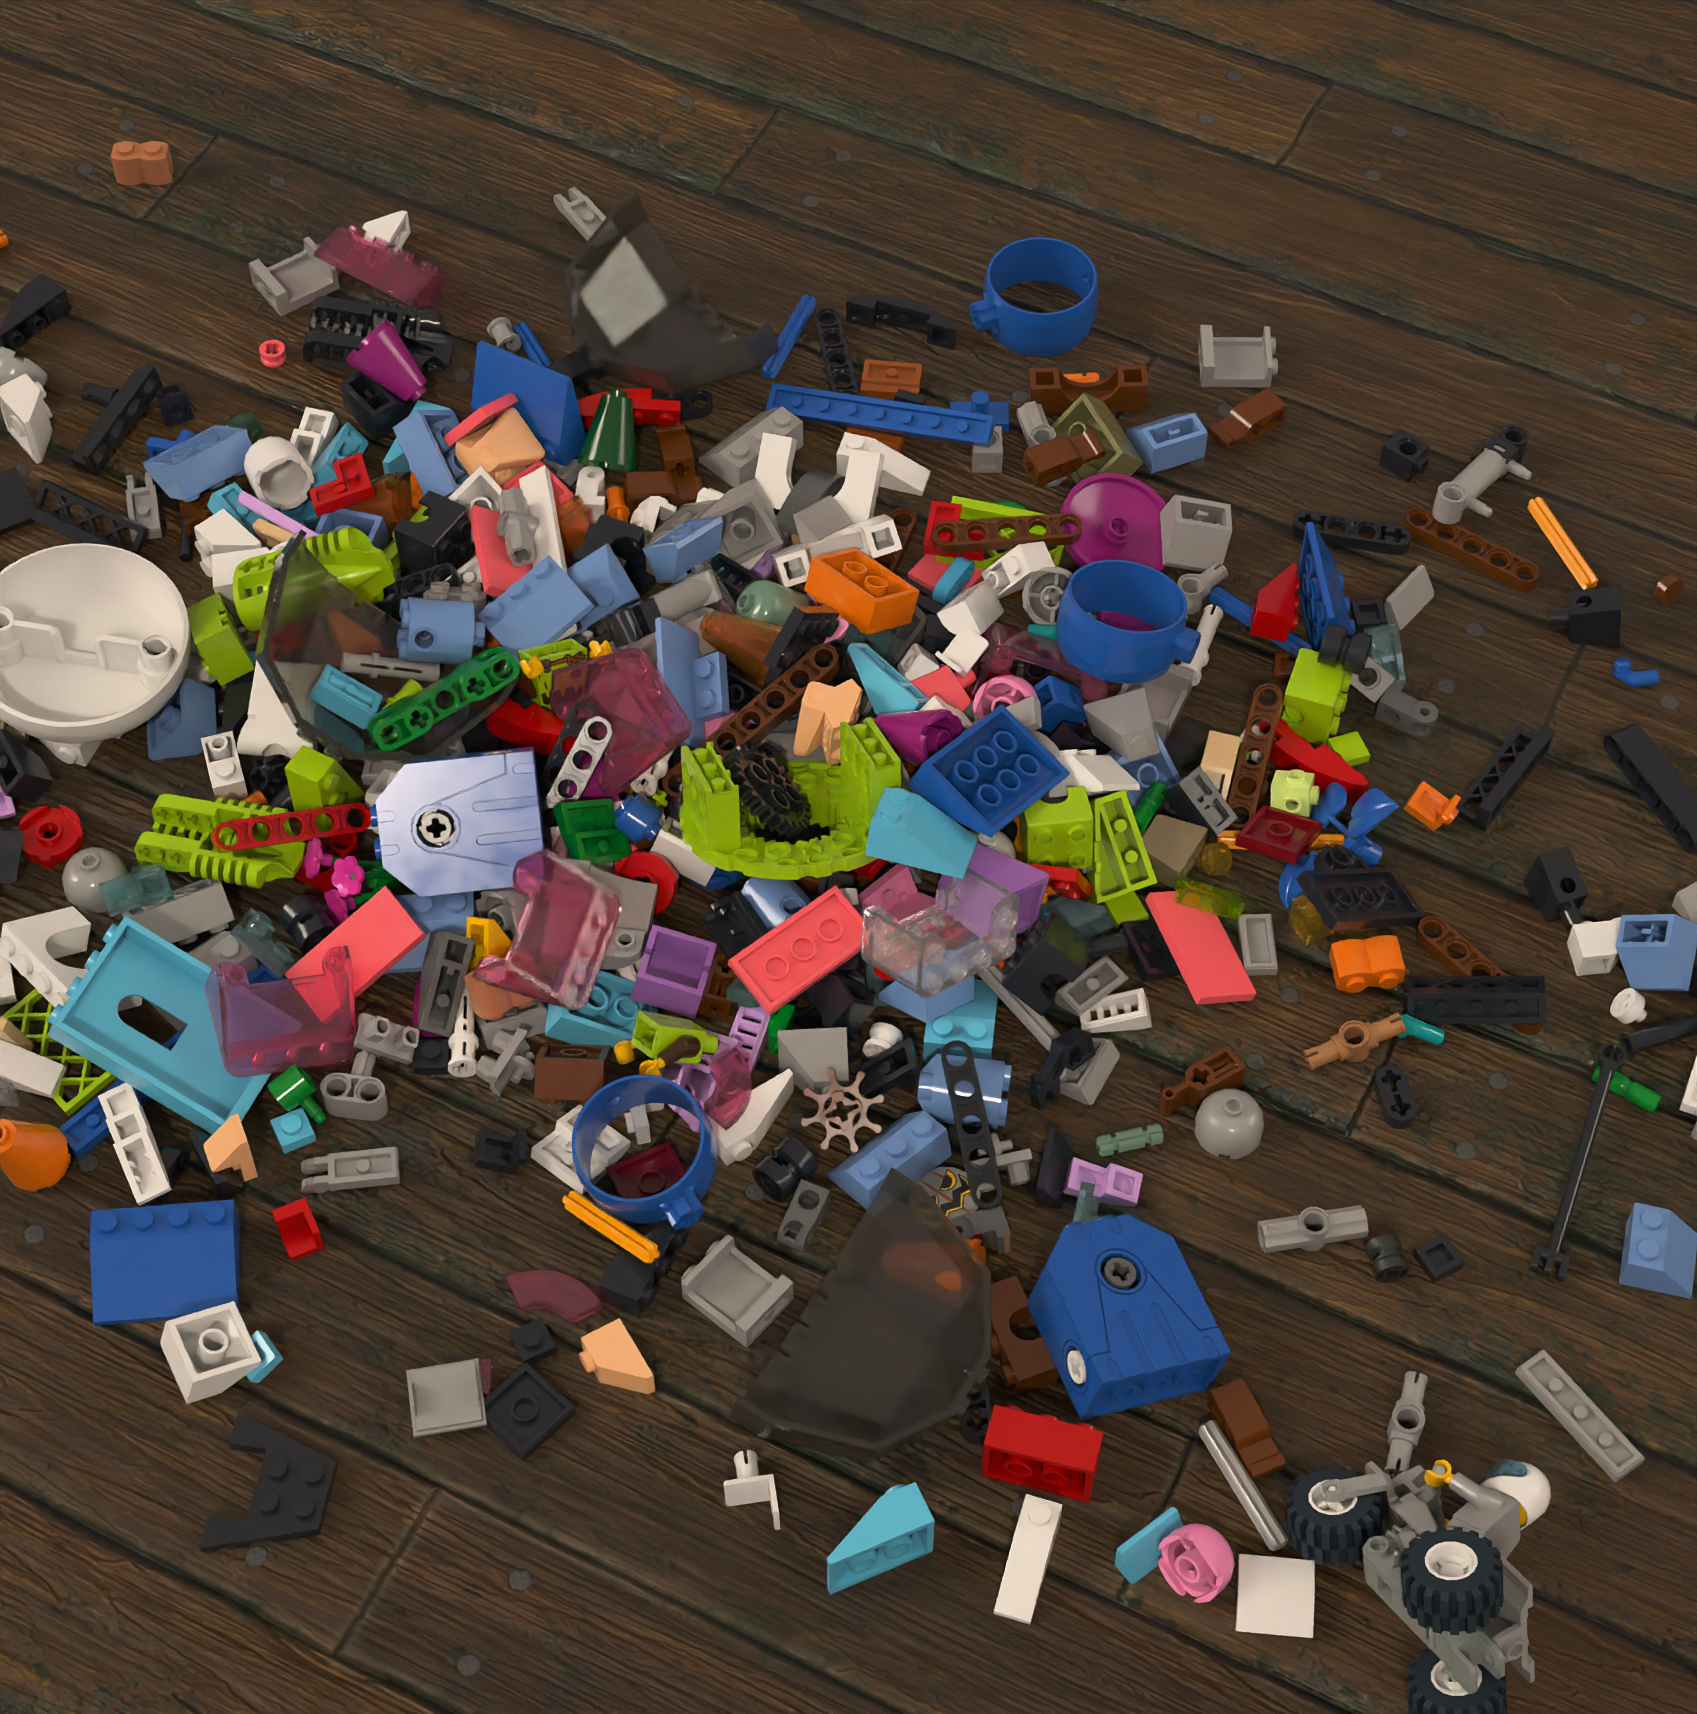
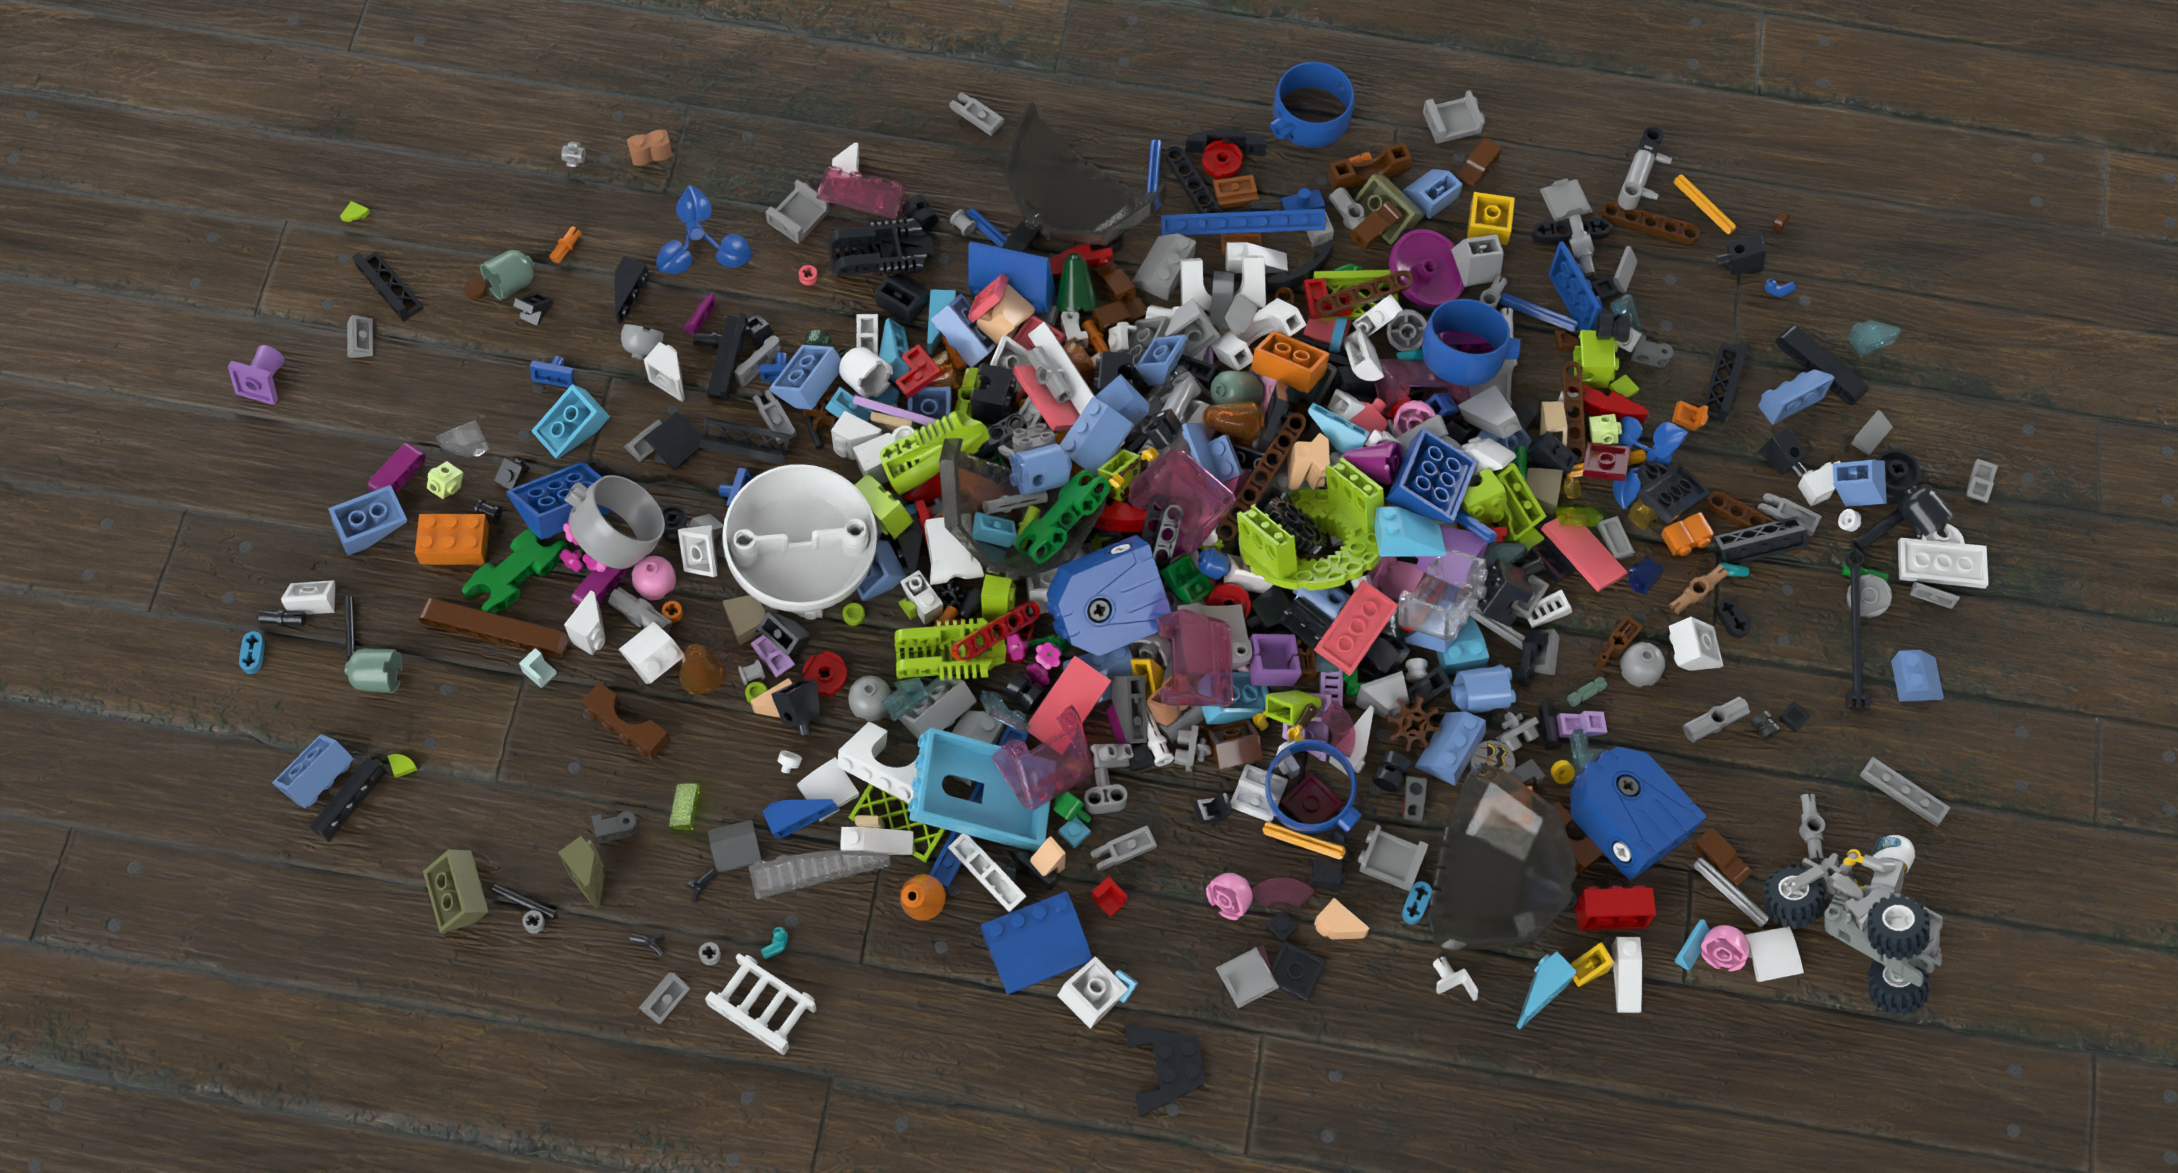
camera: 20 degrees left, 10 degrees up
(43, 150) = (573, 154): none -> light grey gear
(107, 292) = (690, 208): none -> blue plant
(111, 365) = (700, 314): none -> magenta slope
(127, 771) = (853, 614): none -> lime tile
(132, 443) = (751, 367): none -> light grey hinge
(204, 782) = (908, 607): none -> lime tile
(389, 363) = (905, 269): magenta cone -> none
(452, 311) = (920, 210): none -> black wheel
(472, 1271) = (1231, 894): none -> bright pink cylinder
(694, 904) = (1267, 611): none -> black torso
(742, 1359) = (1411, 900): none -> dark azure beam
(896, 350) = (1222, 169): none -> red plate
(964, 651) = (1376, 390): white bracket -> none
(974, 1529) = (1592, 965): none -> yellow slope
(975, 1107) = (1490, 707): black beam -> none
(978, 483) = (1306, 272): none -> black slope
(1026, 852) = (1475, 526): none -> blue axle
(1042, 1238) = (1562, 772): none -> yellow tile
(1239, 482) = (1491, 216): none -> yellow brick
(1276, 607) = (1549, 304): red slope -> none
(1279, 1003) = (1644, 575): none -> clear blue brick
(1321, 1117) = (1695, 645): none -> white slope
(1356, 552) = (1582, 245): none -> light grey pin
(1359, 493) = (1565, 199): none -> light grey piece
(1404, 455) = (1586, 158): black brick -> none
(1560, 989) = (1789, 509): none -> light grey hinge
(1604, 818) = (1795, 395): none -> medium blue slope
(1626, 1120) = (1874, 596): none -> light grey tile

